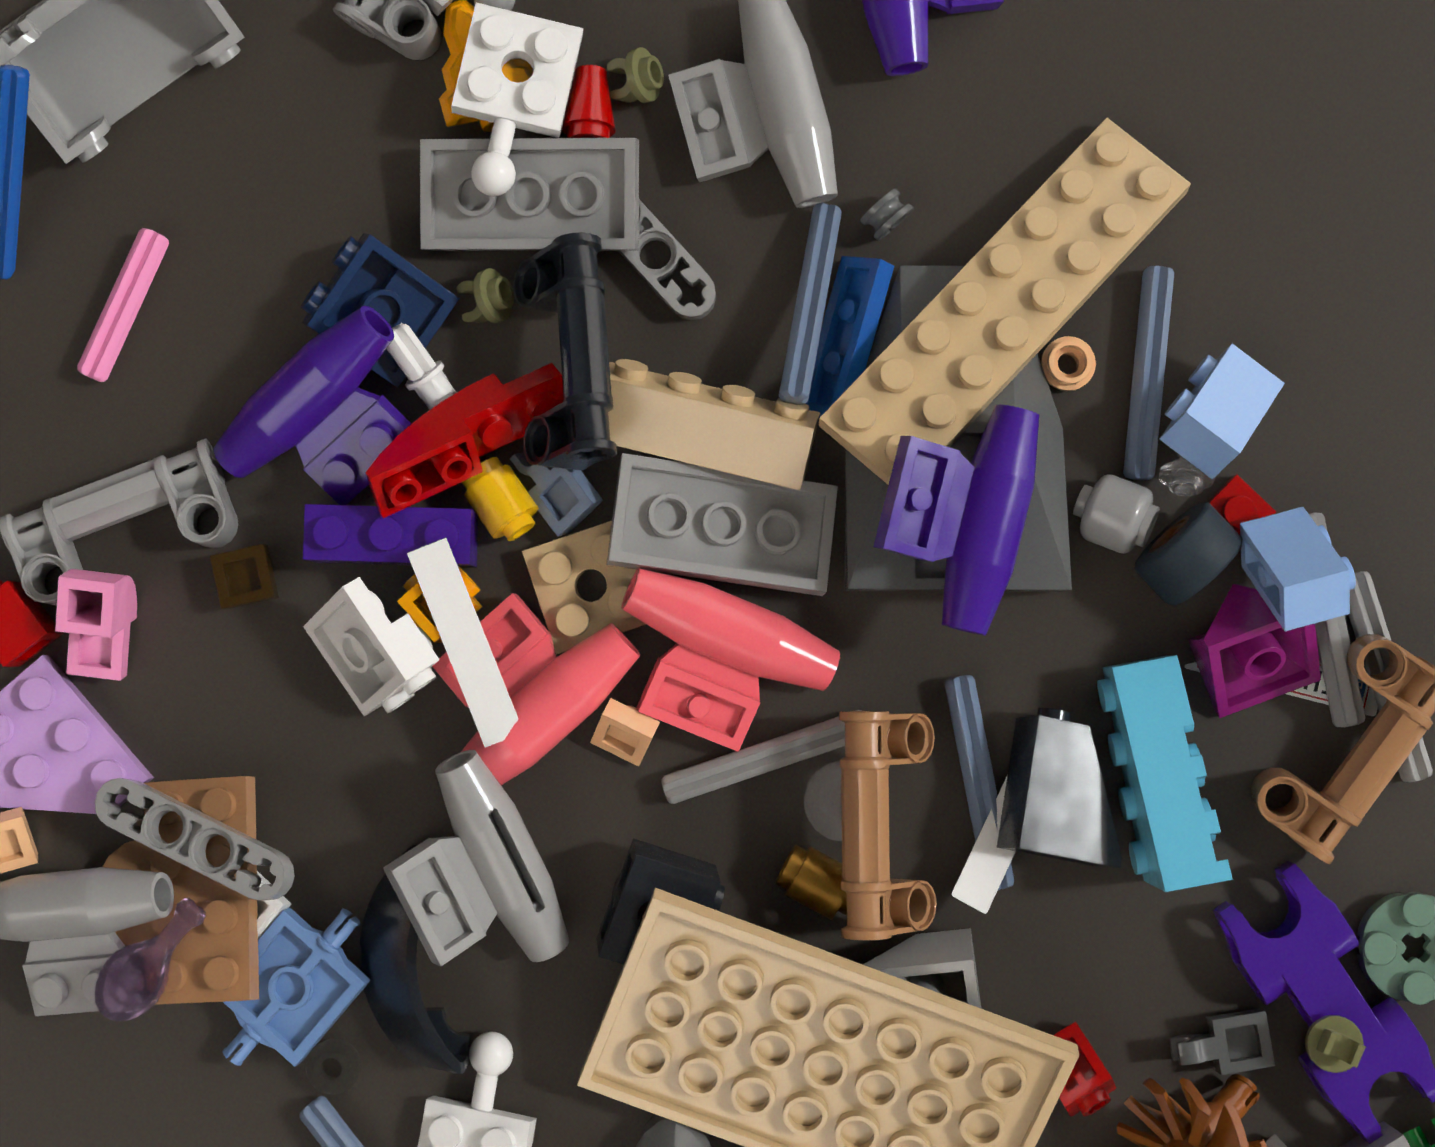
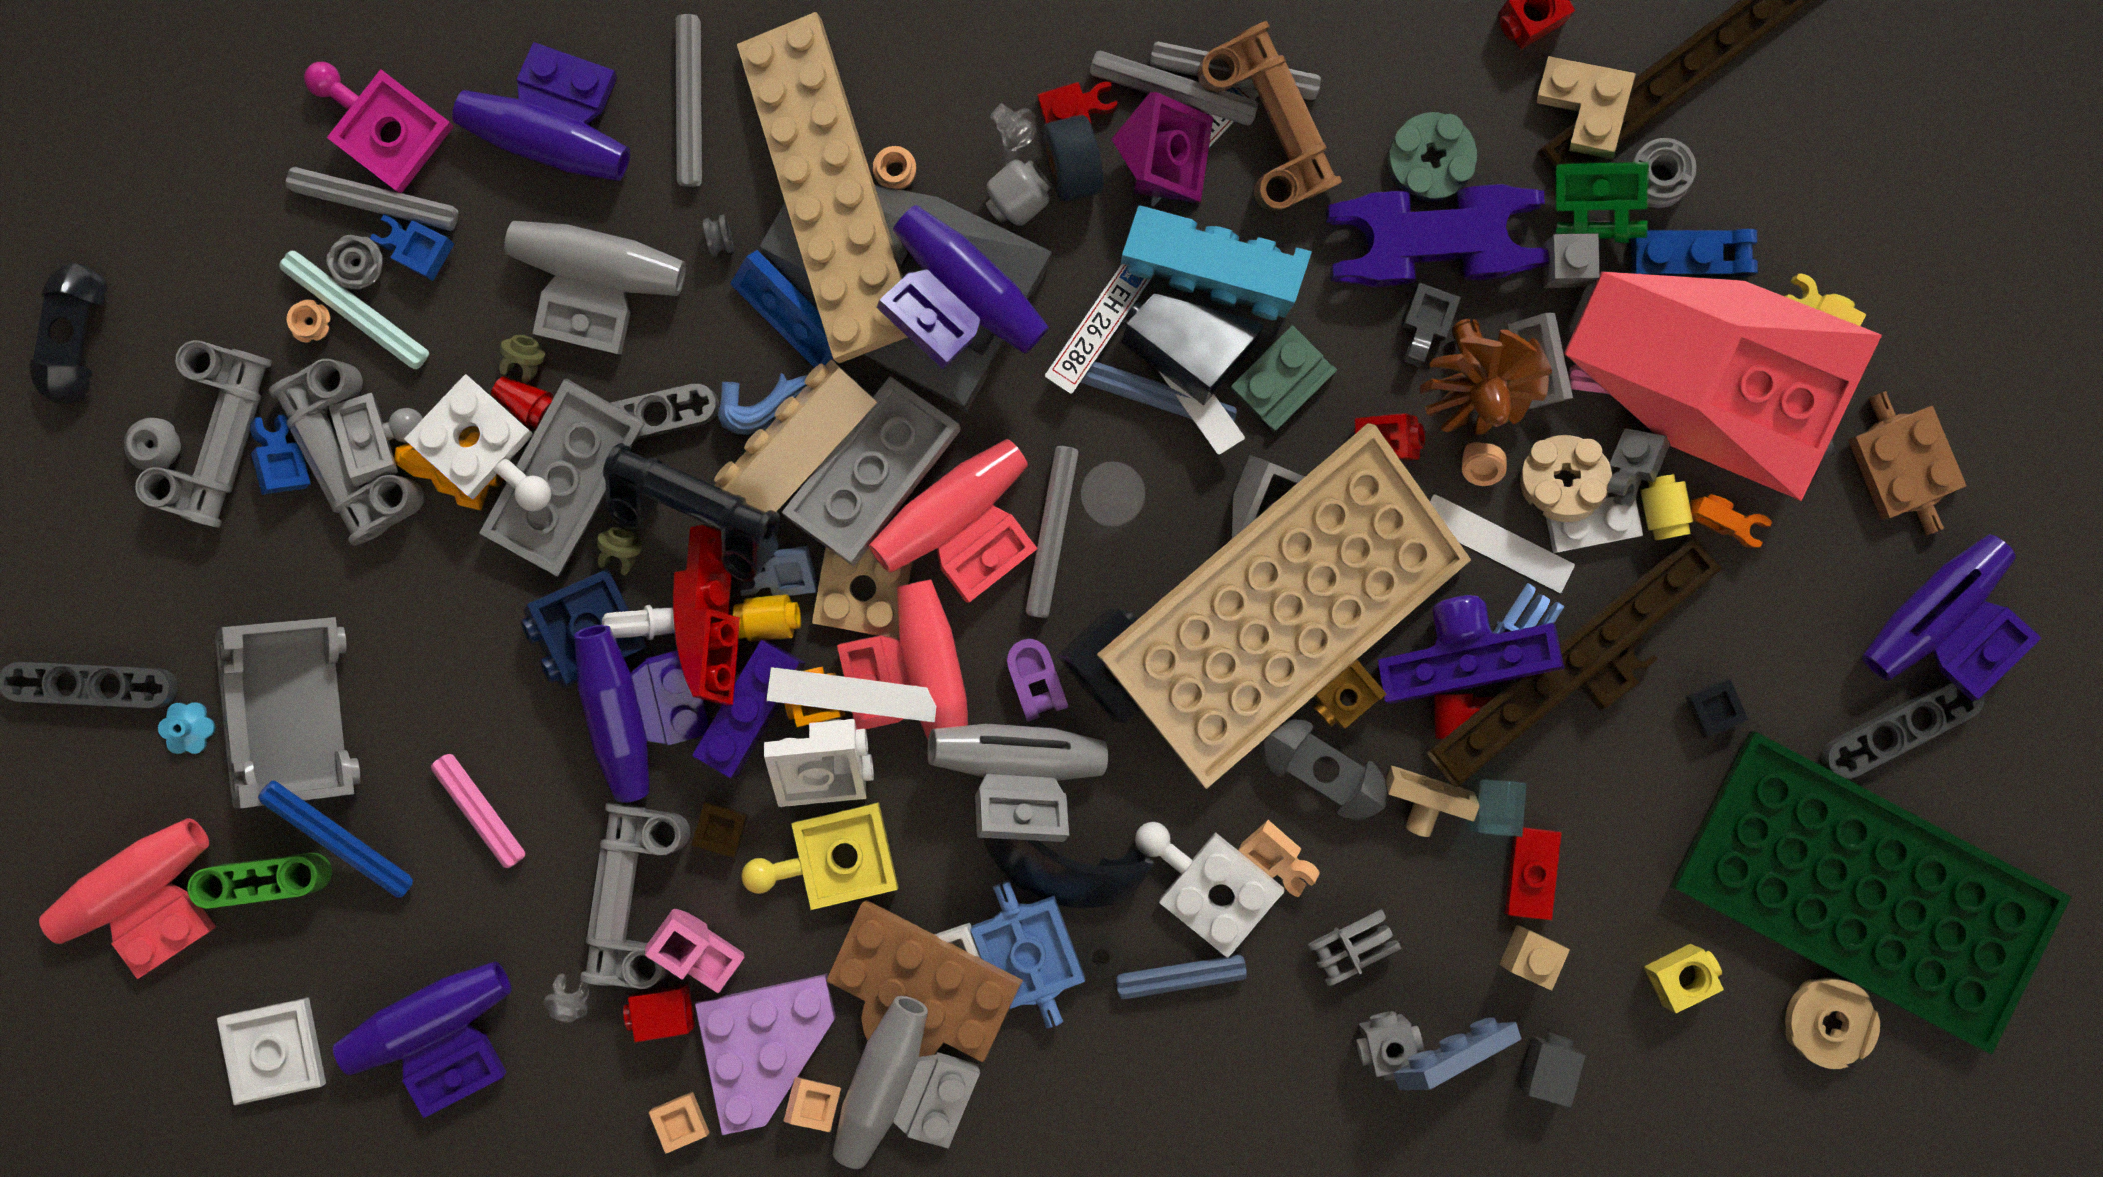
camera: 65 degrees left, 0 degrees up
(140, 972) = (956, 1051): clear purple piece -> none
(196, 833) = (886, 965): light grey beam -> none
(252, 719) = (823, 878): none -> light yellow plate
(608, 813) = (1027, 664): none -> medium lavender plate
(624, 732) = (979, 620): light nougat plate -> none
(714, 368) = (749, 419): none -> medium blue piece
(810, 304) = (750, 323): sand blue axle -> none
(814, 881) = (1159, 543): pearl gold brick -> none
(876, 902) = (1083, 450): medium nougat piece -> none
(1014, 682) = (1096, 329): none -> white sticker
(1016, 99) = (688, 101): none -> light grey axle
(1075, 917) = (1283, 378): none -> sand green plate
(1148, 373) = (932, 115): sand blue axle -> none
(1221, 410) = (986, 80): light blue brick -> none
(1296, 568) = (1123, 88): light blue brick -> none
(1334, 1043) = (1465, 246): olive plate -> none

